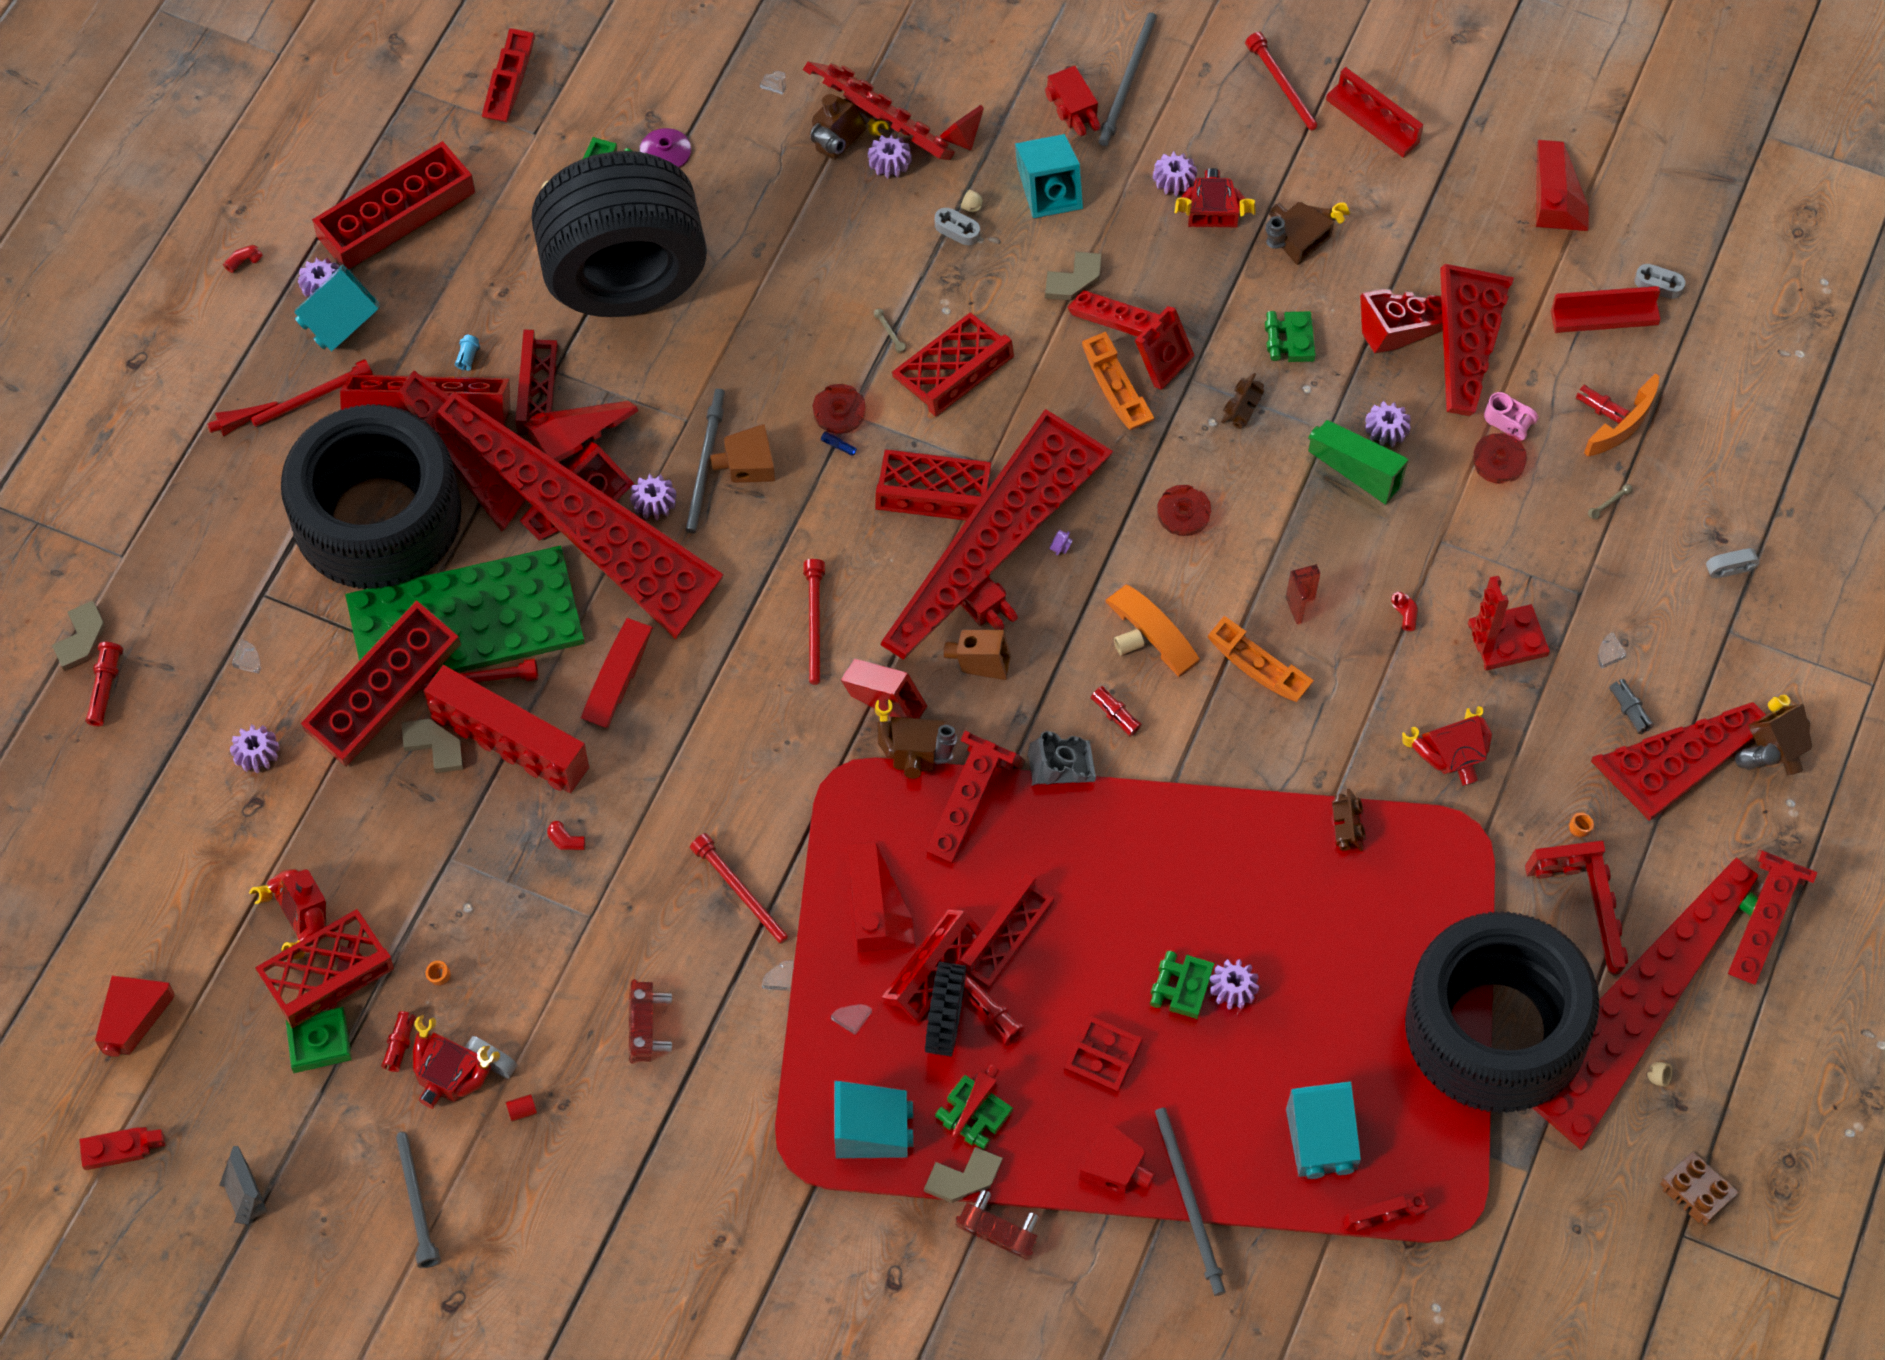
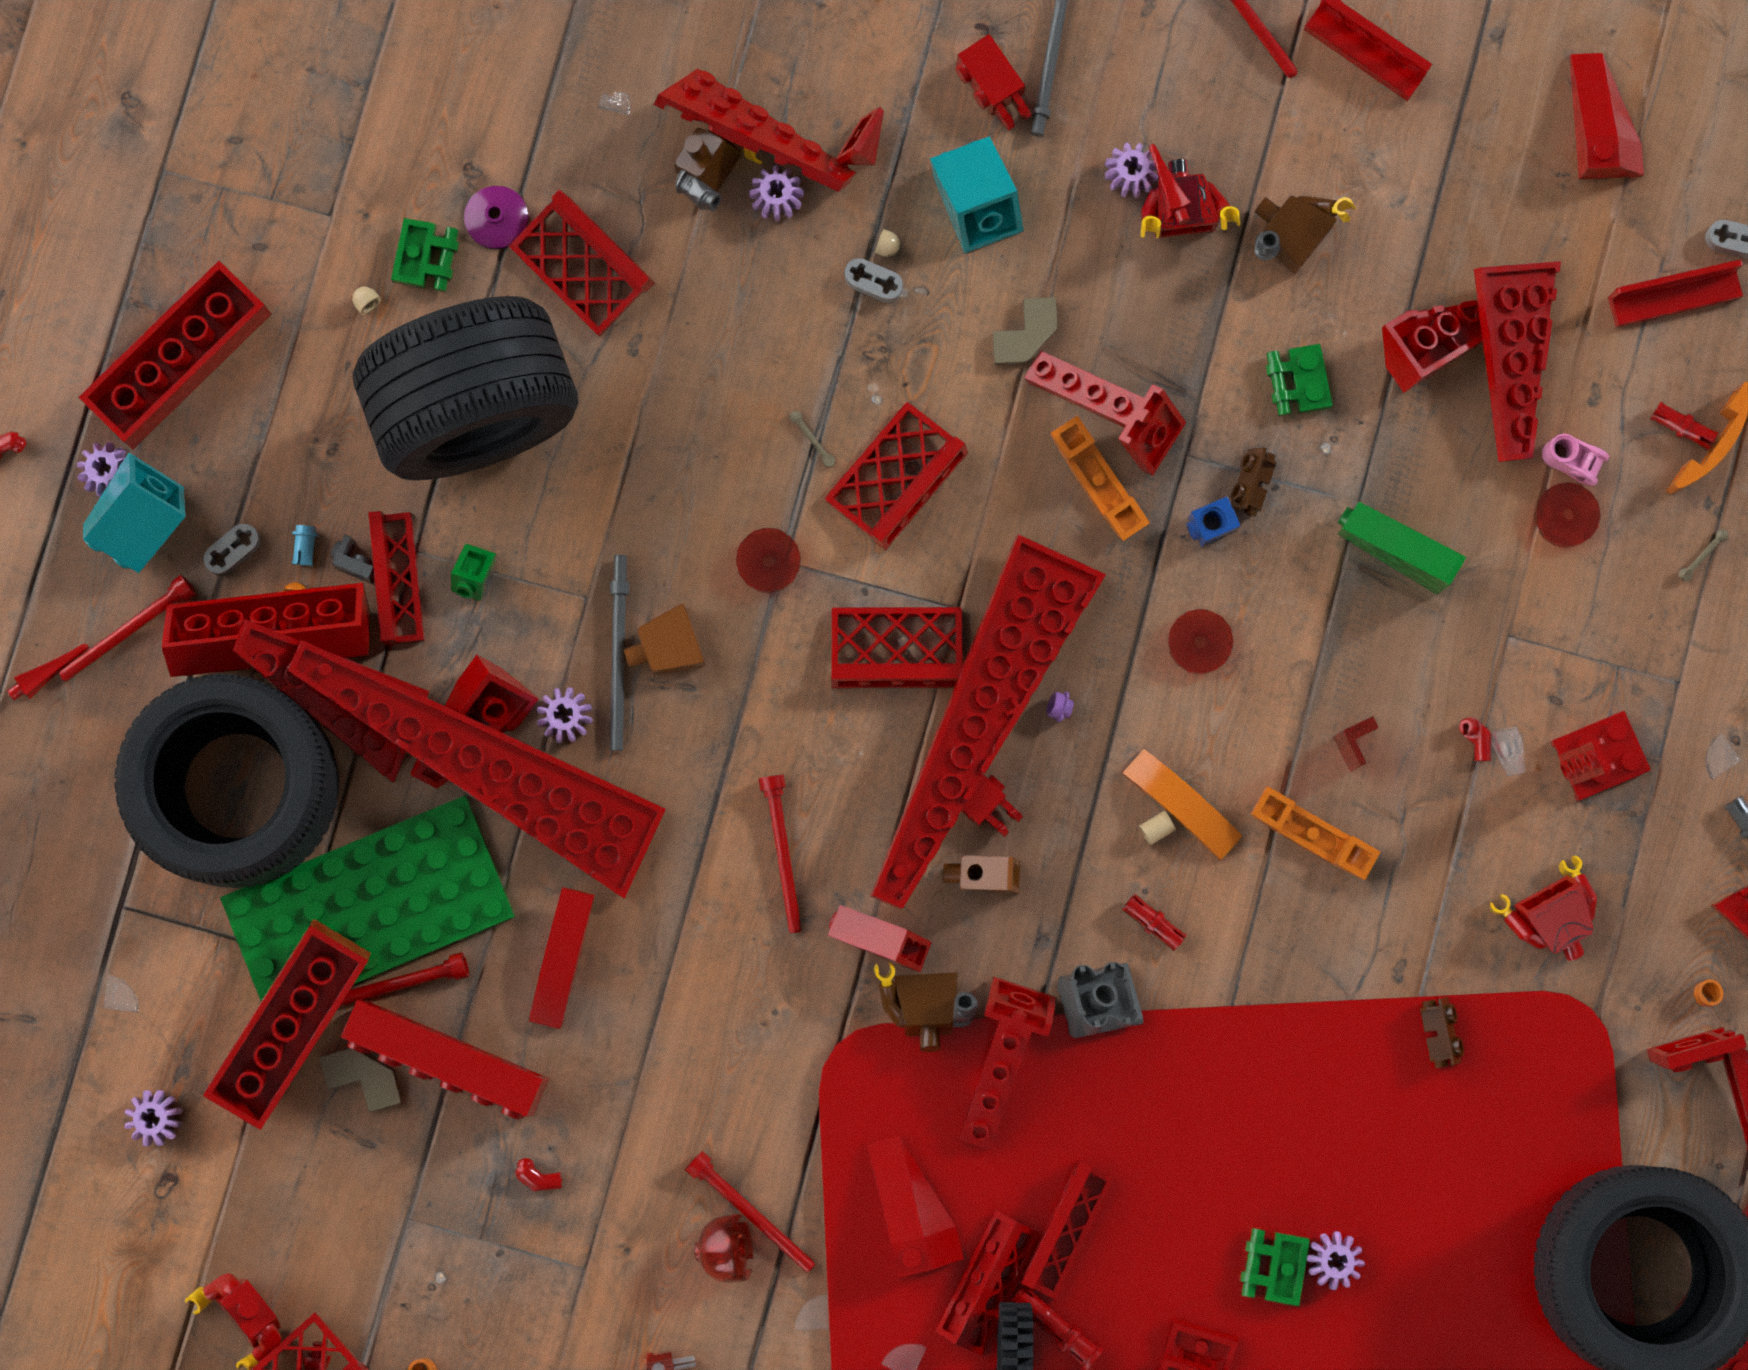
camera: 10 degrees left, 20 degrees up
(409, 349) = (237, 555): none -> light grey beam
(501, 367) = (357, 565): none -> dark grey bracket
(508, 75) = (282, 139): red slope -> none
(563, 431) = (449, 641): red wedge -> none
(597, 386) = (472, 572): none -> green bracket
(713, 907) = (725, 1248): none -> clear red cylinder
(747, 176) = (601, 243): none -> red fence
(838, 443) = (774, 606): clear blue pin -> none
(1205, 188) = (1174, 197): none -> red piece
(1210, 415) = (1223, 512): none -> blue brick
(1387, 424) = (1420, 481): lavender gear -> none
(1432, 620) = (1509, 749): none -> clear cone

